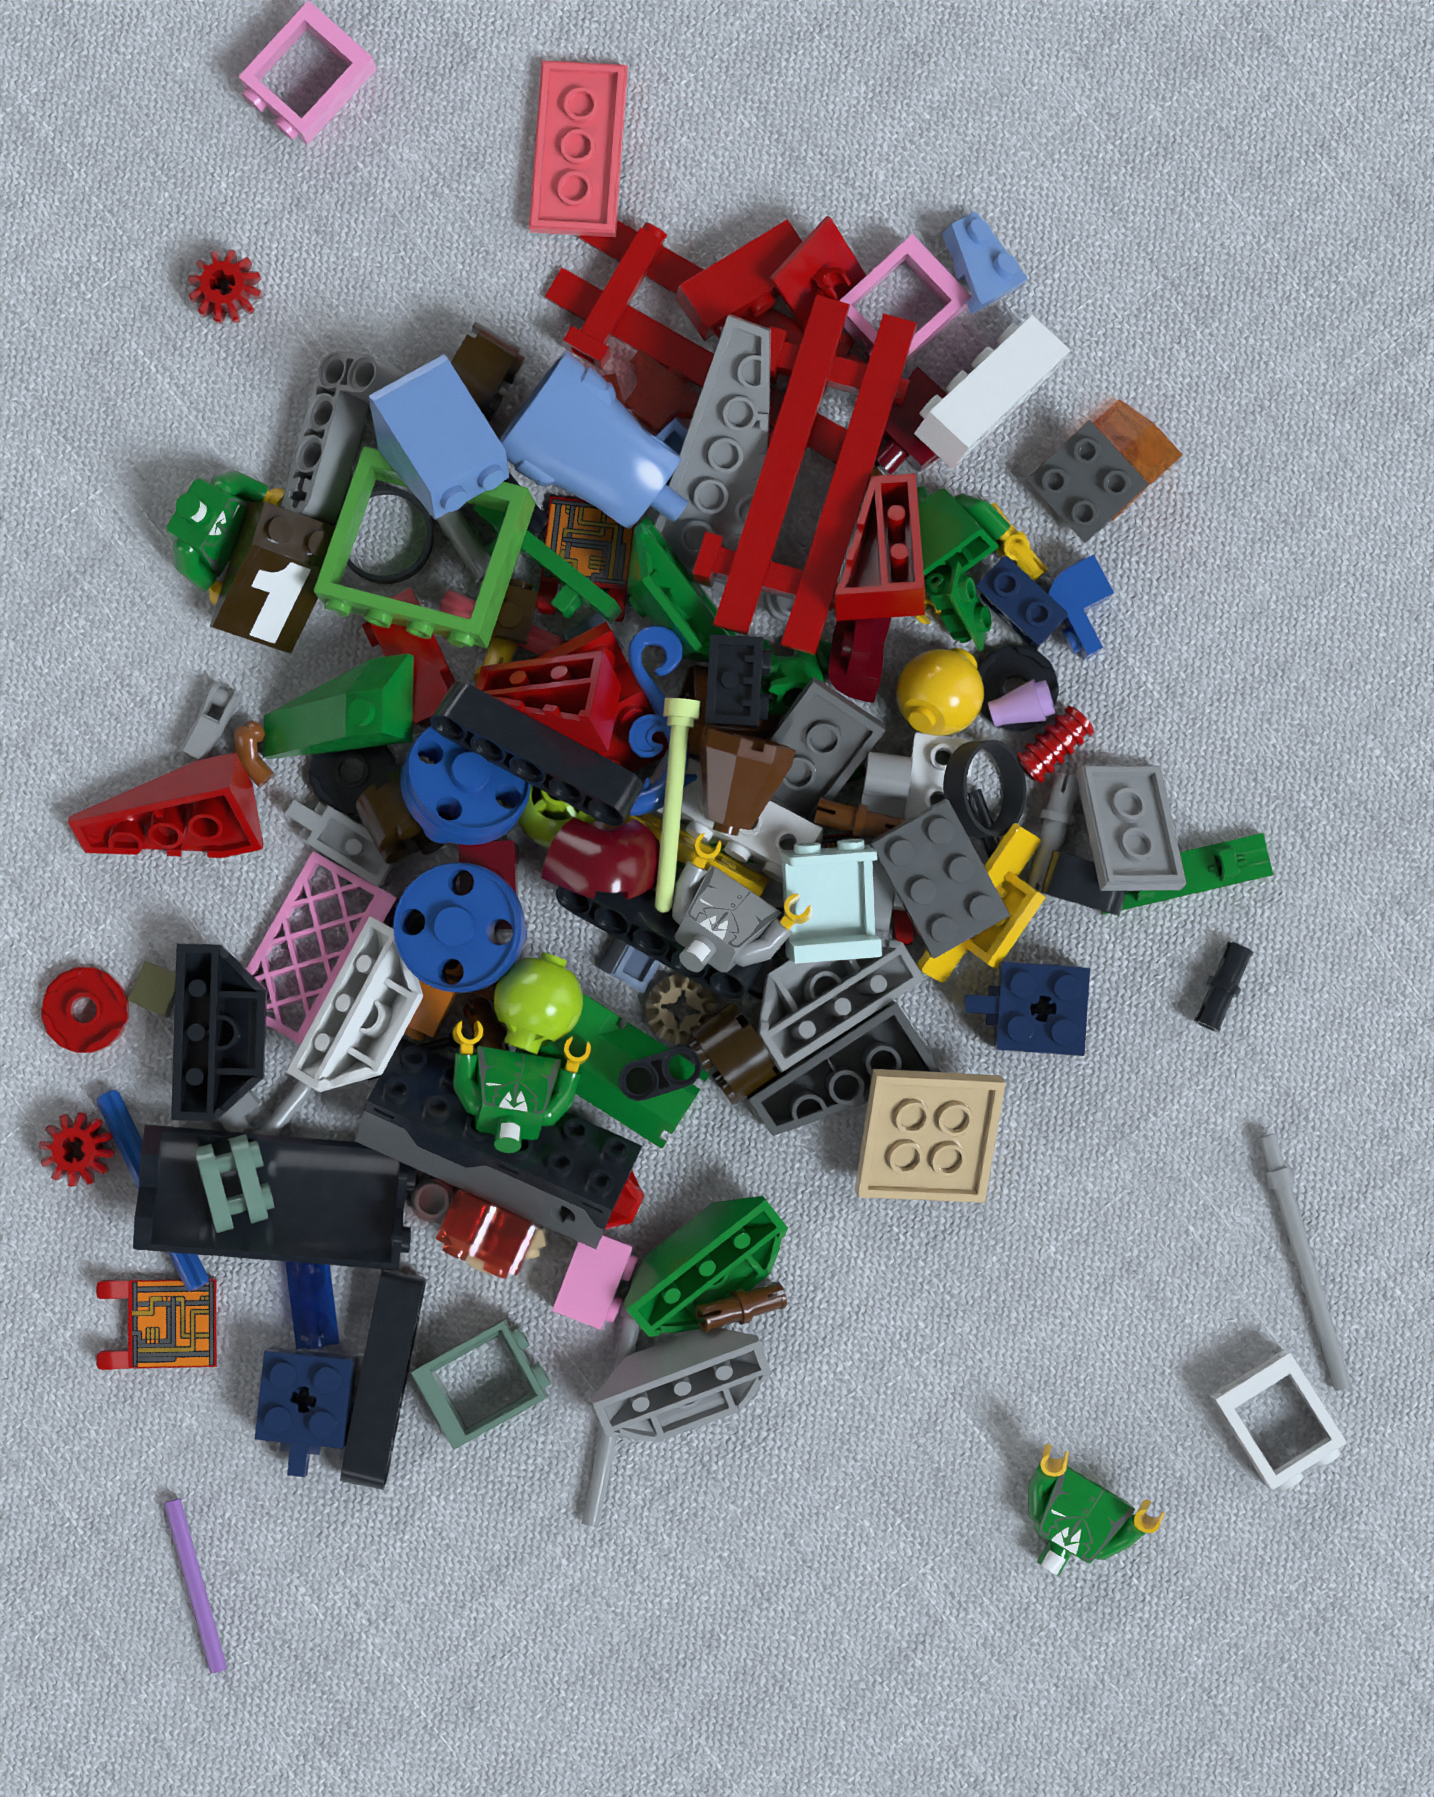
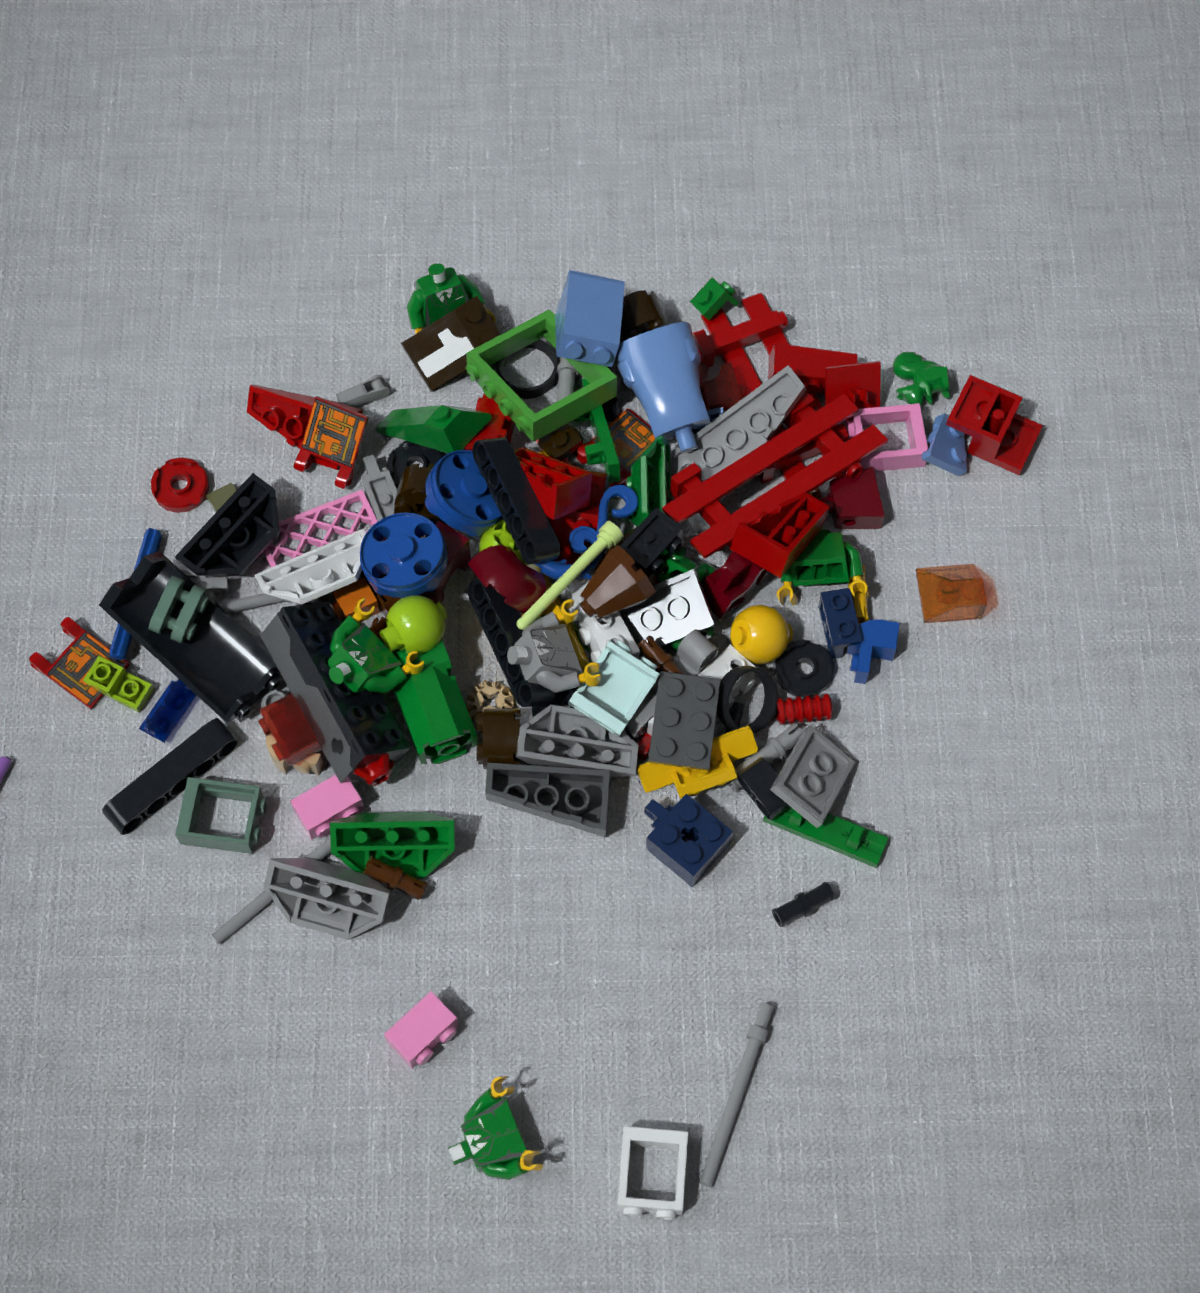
camera: 30 degrees right, 20 degrees down
(62, 1152) = (104, 544): red gear -> none
(227, 1315) = (118, 684): none -> lime slope
(231, 818) = (334, 436): none -> flag
(238, 275) = (541, 202): red gear -> none
(245, 746) = (374, 412): dark orange arm -> none
(285, 1419) = (103, 750): dark blue hinge -> none
(333, 432) = (534, 298): light grey beam -> none
(359, 69) = (666, 156): bright pink window -> none
(546, 265) = (713, 297): none -> green bracket
(578, 148) = (774, 259): coral tile -> none
(628, 965) = (482, 661): sand blue slope -> none
(658, 1068) = (447, 708): black beam -> none
(890, 180) = (926, 376): none -> green animal
(908, 1455) = (422, 1030): none -> bright pink brick
(929, 1135) = (572, 858): tan plate -> none
(960, 606) = (805, 610): green hinge -> none
(991, 391) = (903, 501): white brick -> none
(1022, 705) = (803, 673): lavender cone -> none
(1024, 195) = (993, 422): none -> red bracket
(1087, 481) = (923, 586): dark grey hinge -> none

